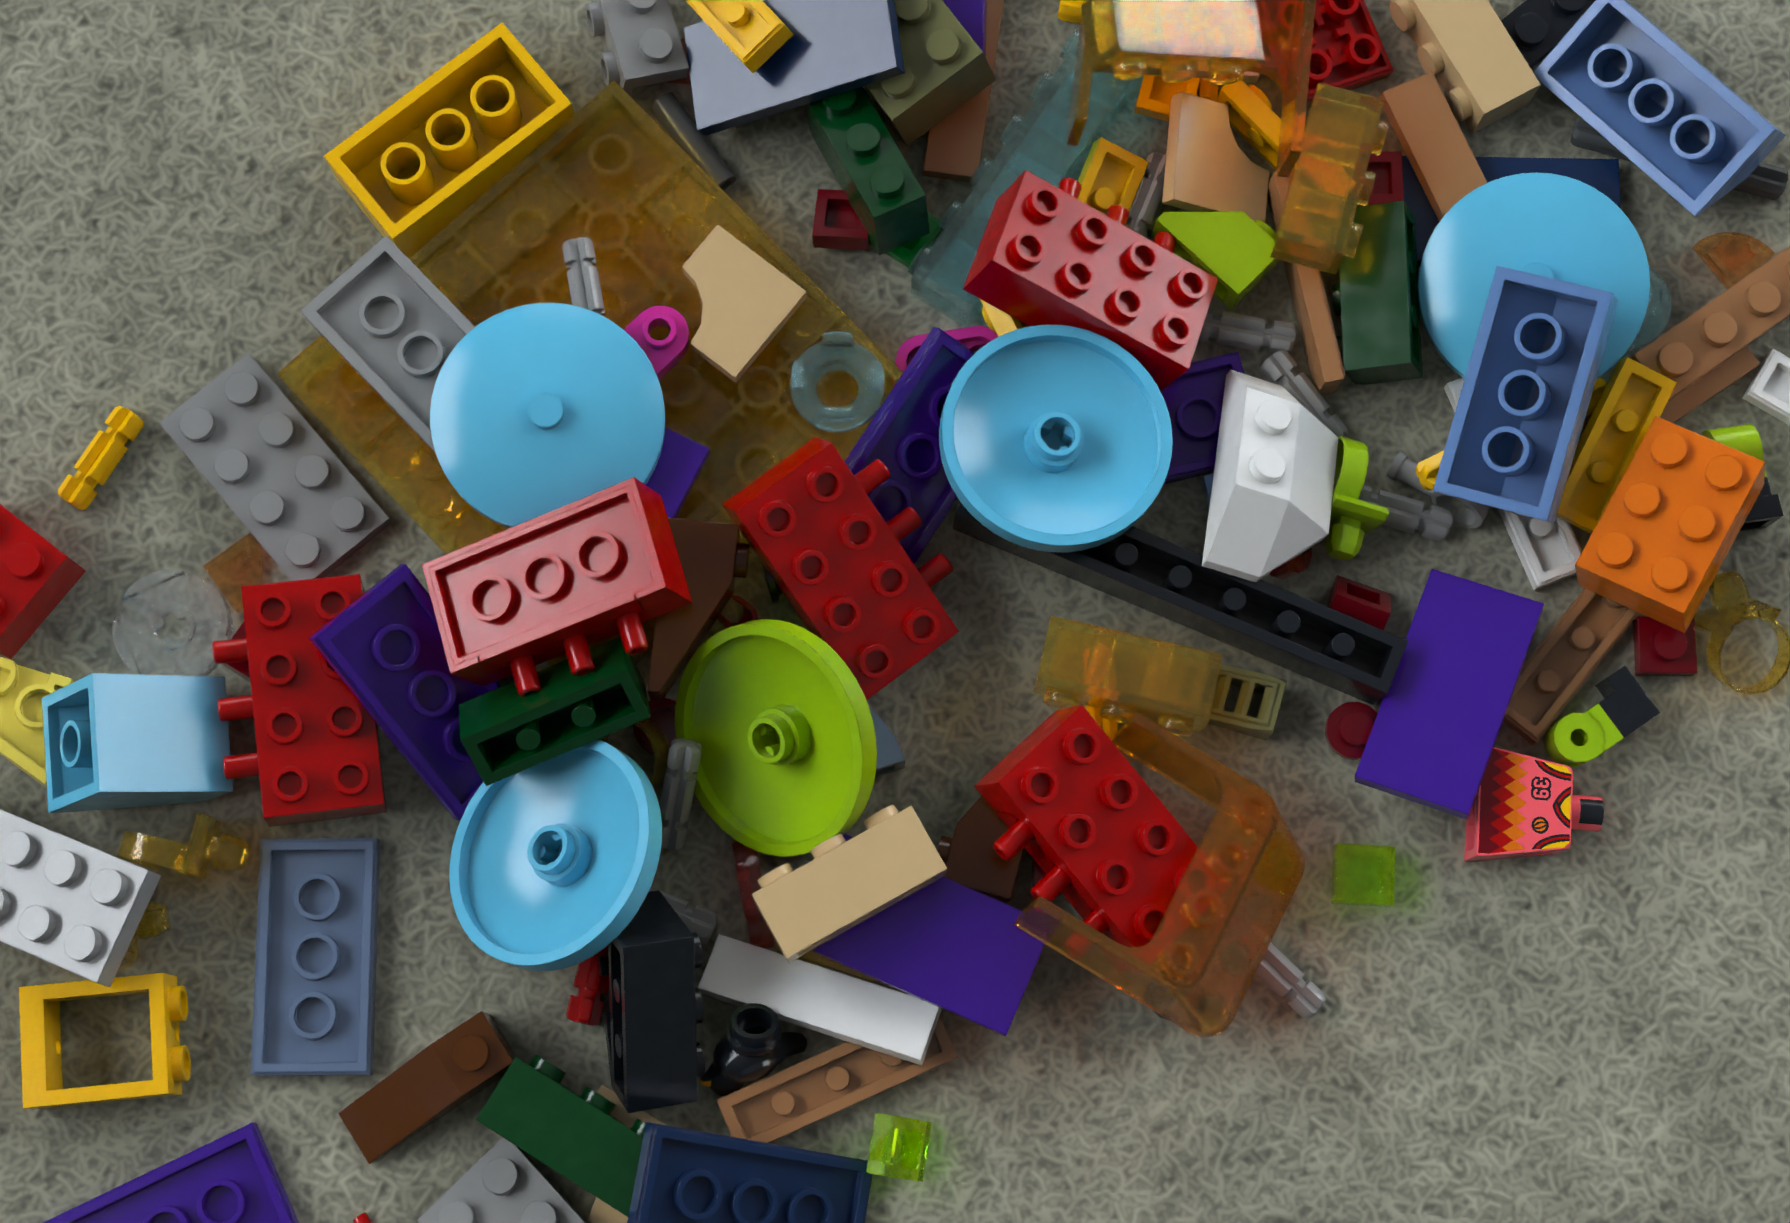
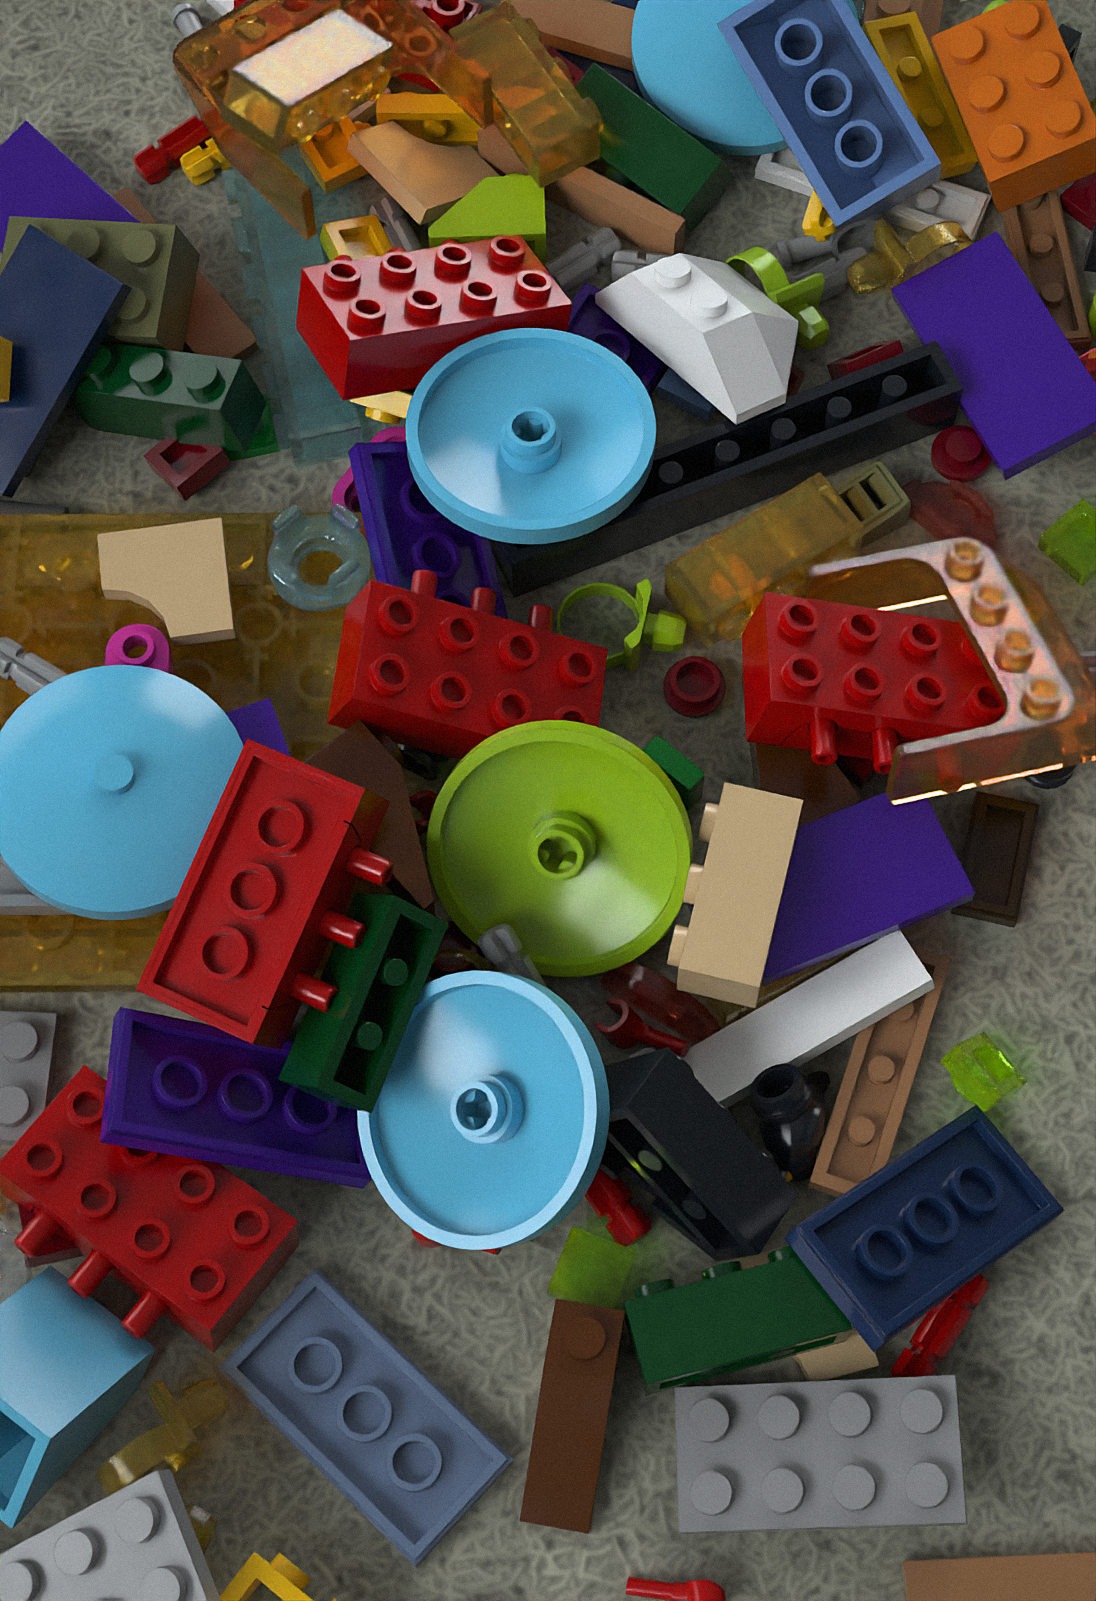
camera: 40 degrees left, 10 degrees down
(531, 1014) = (591, 1270): none -> clear neon green plate
(719, 892) = (632, 1029): none -> red hand
(919, 753) = (683, 773): none -> green tile
(1000, 709) = (694, 687): none -> dark red plate
(1017, 652) = (661, 630): none -> lime piece
(1065, 1022) = (997, 857): none -> dark brown tile
(1300, 767) = (951, 511): none -> clear red tile
(1460, 560) = (894, 261): none -> clear yellow piece

